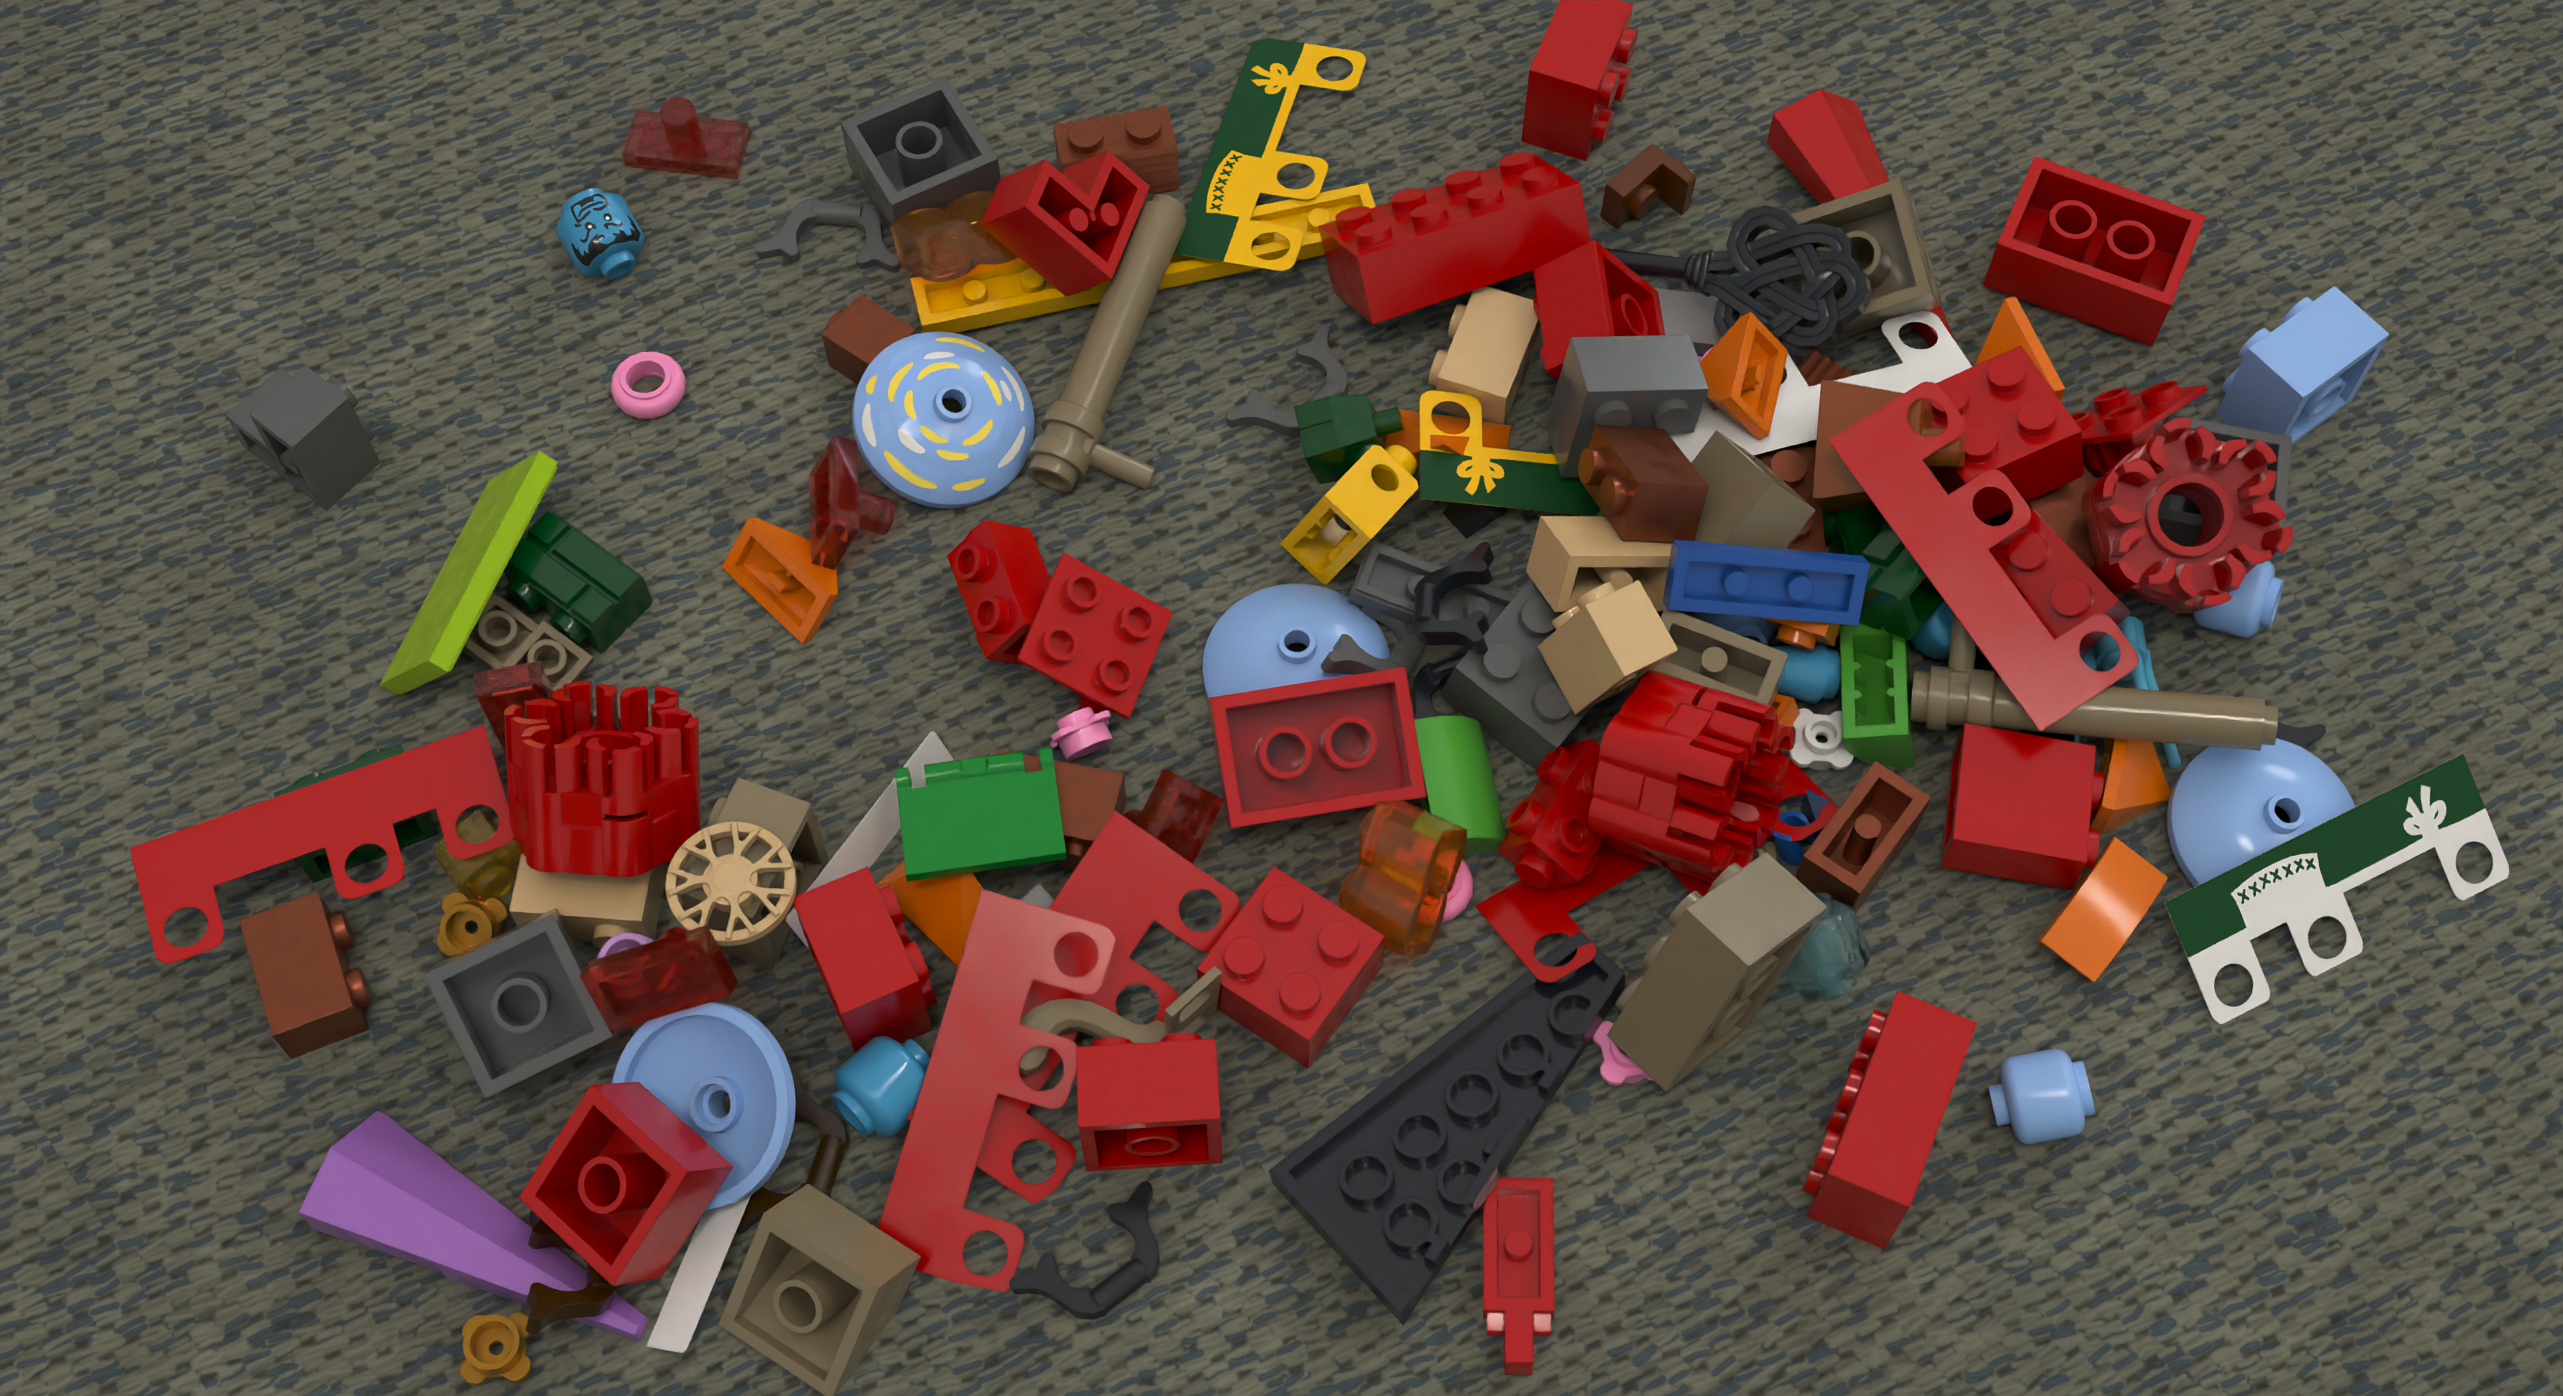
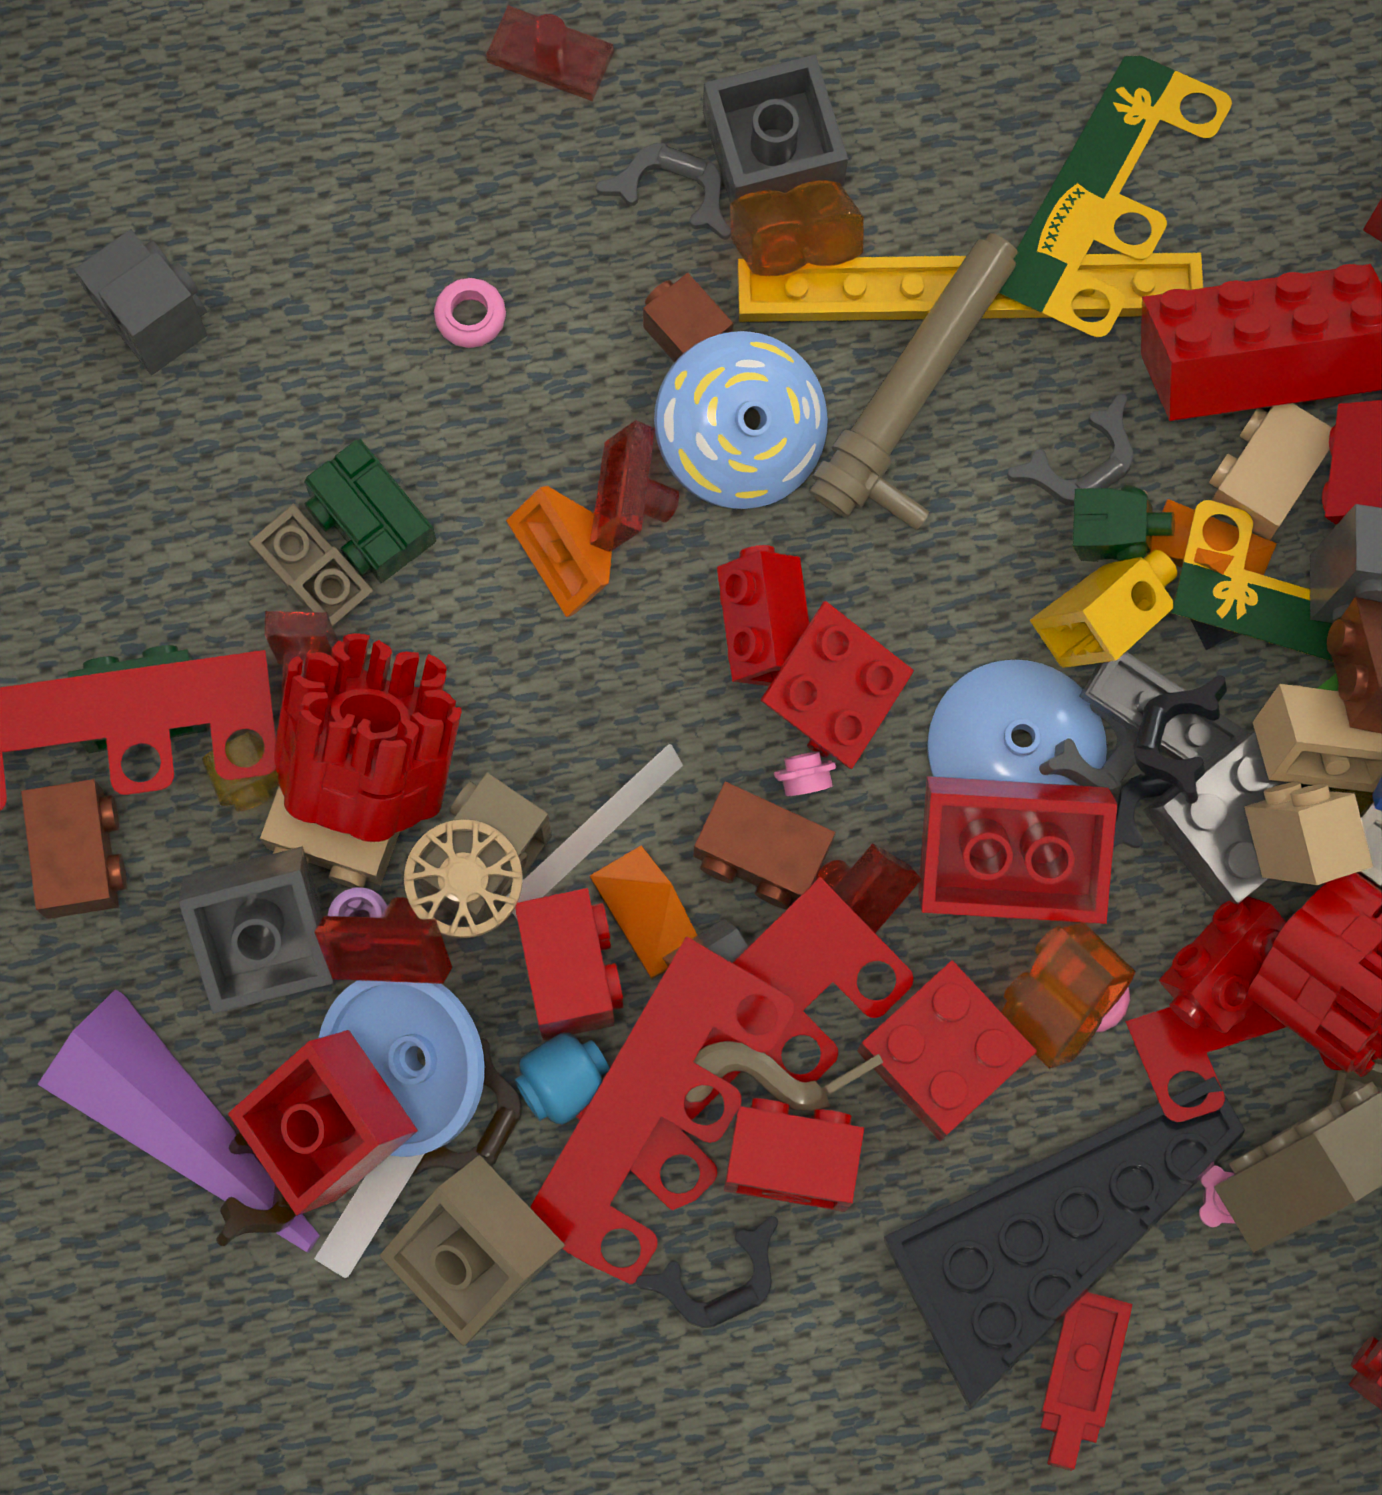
camera: 10 degrees right, 15 degrees up
(460, 909) = (212, 846): pearl gold plate -> none
(469, 574) = (275, 486): lime tile -> none
(481, 1334) = (170, 1241): pearl gold plate -> none
(600, 234) = (451, 141): dark azure head -> none
(980, 816) = (697, 848): green piece -> none
(1068, 222) = (904, 249): red brick -> none
(1138, 139) = (963, 168): copper brick -> none
(1460, 779) = (1141, 907): bright green brick -> none

